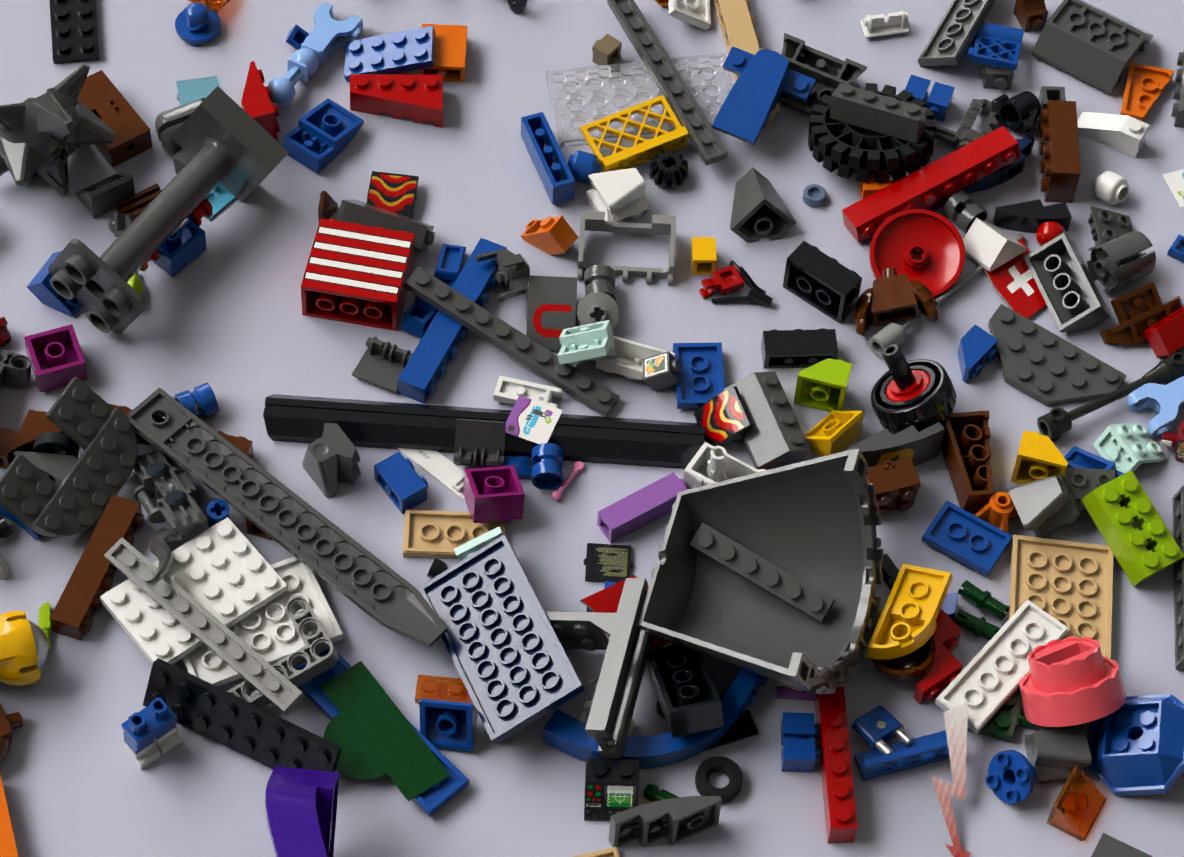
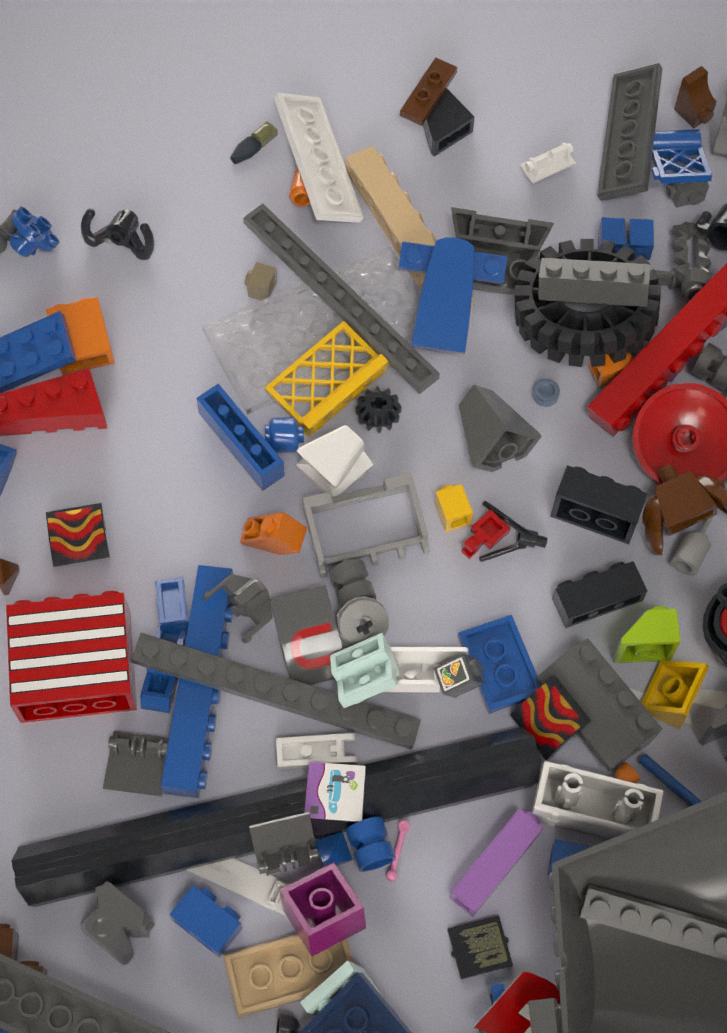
camera: 15 degrees left, 10 degrees up
(365, 214) = (80, 576): dark grey slope -> none

